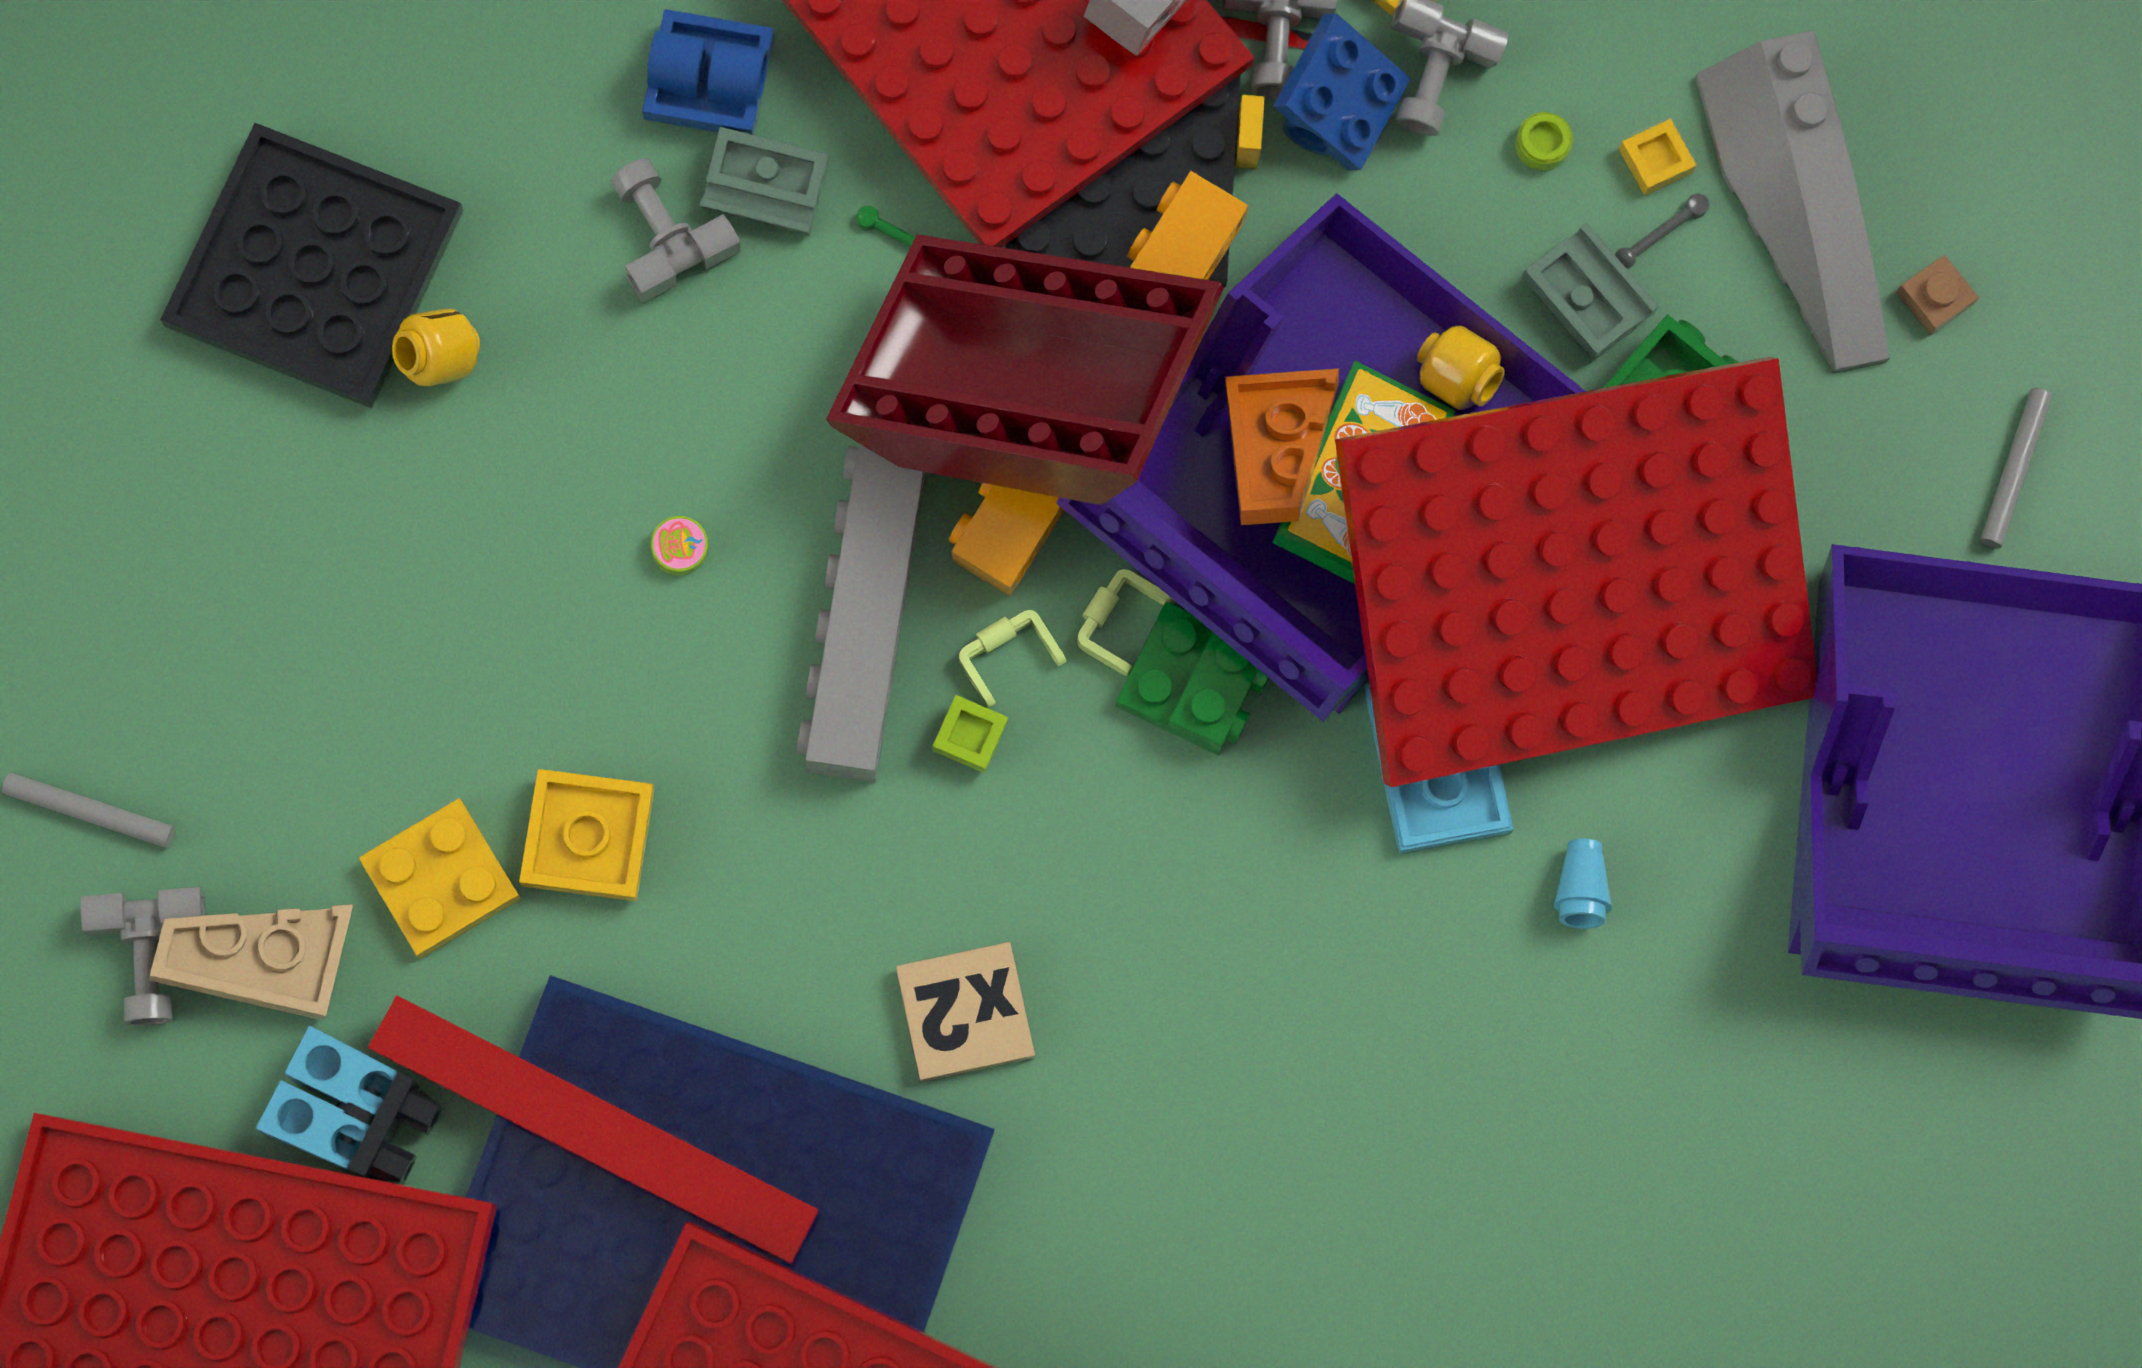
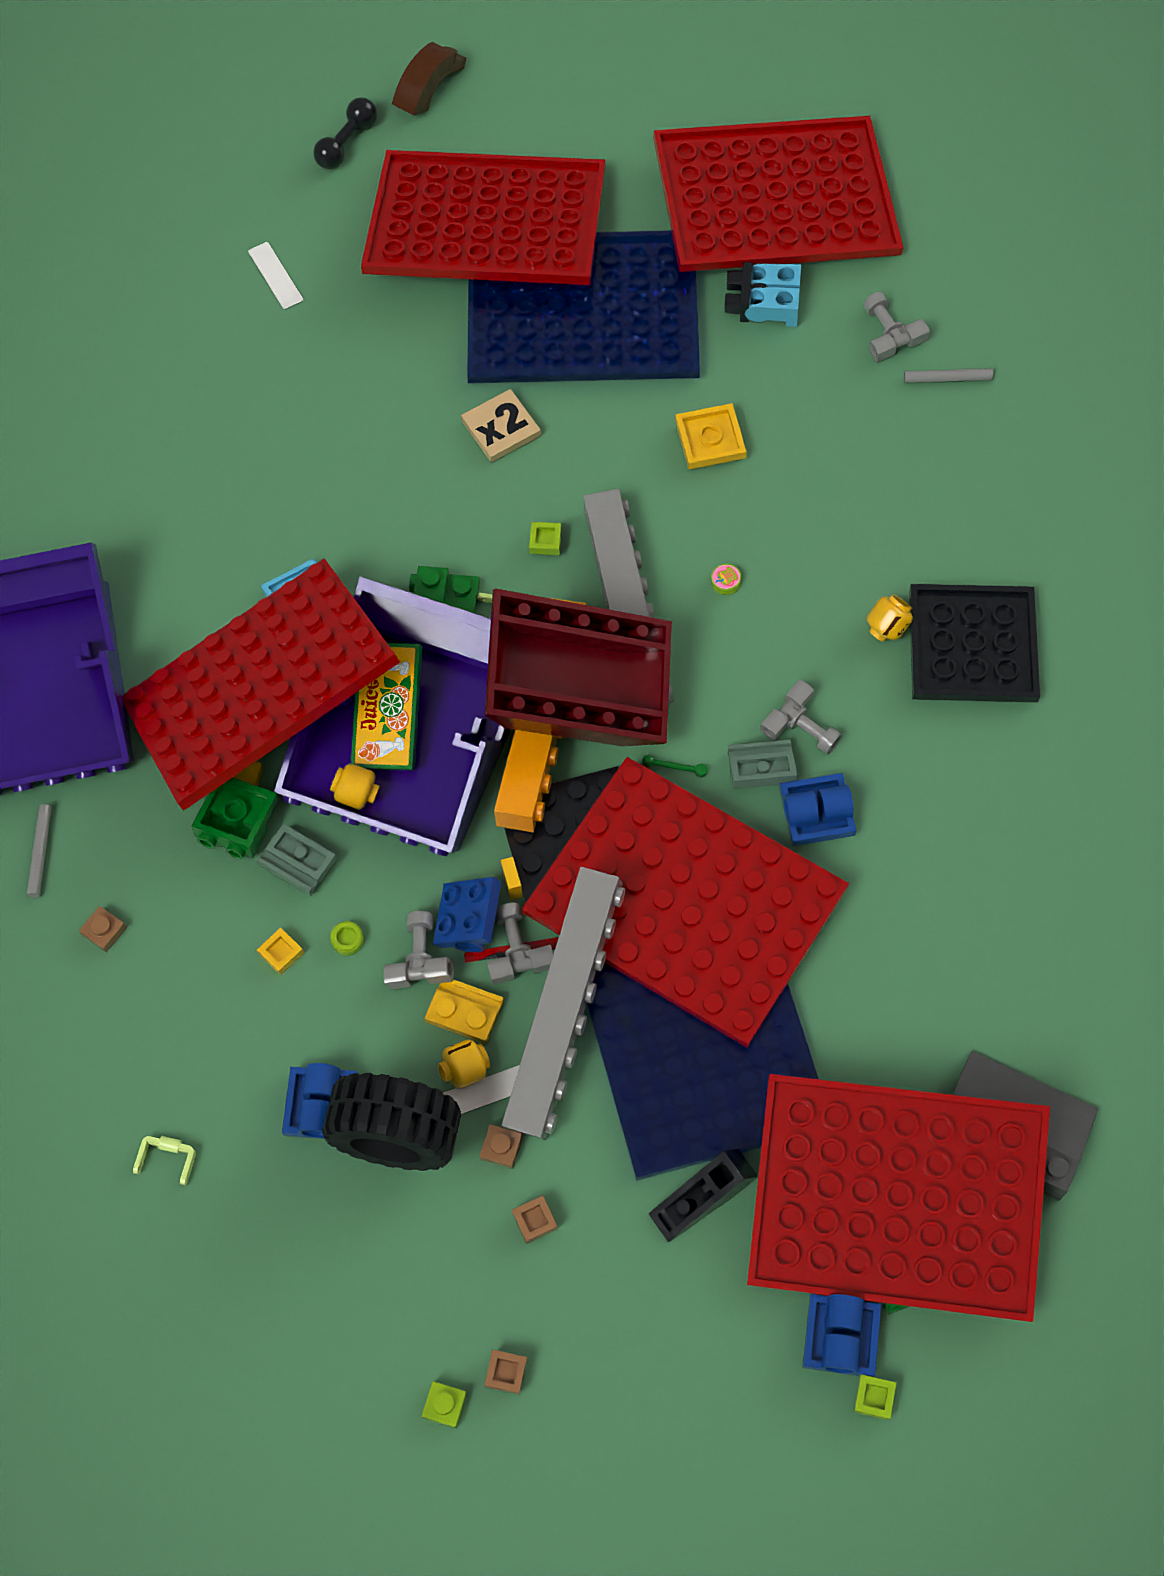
camera: 170 degrees right, 10 degrees down
(256, 959) = (837, 335): tan wing -> none
(439, 878) = (771, 400): yellow plate -> none
(594, 1129) = (650, 314): red tile -> none
(995, 636) = (555, 586): yellowish green piece -> none
(1277, 439) = (437, 697): orange wing -> none
(1583, 886) = (218, 570): medium azure cone -> none
(1695, 207) = (251, 933): dark grey hinge -> none
(1795, 179) = (199, 959): light grey wedge -> none

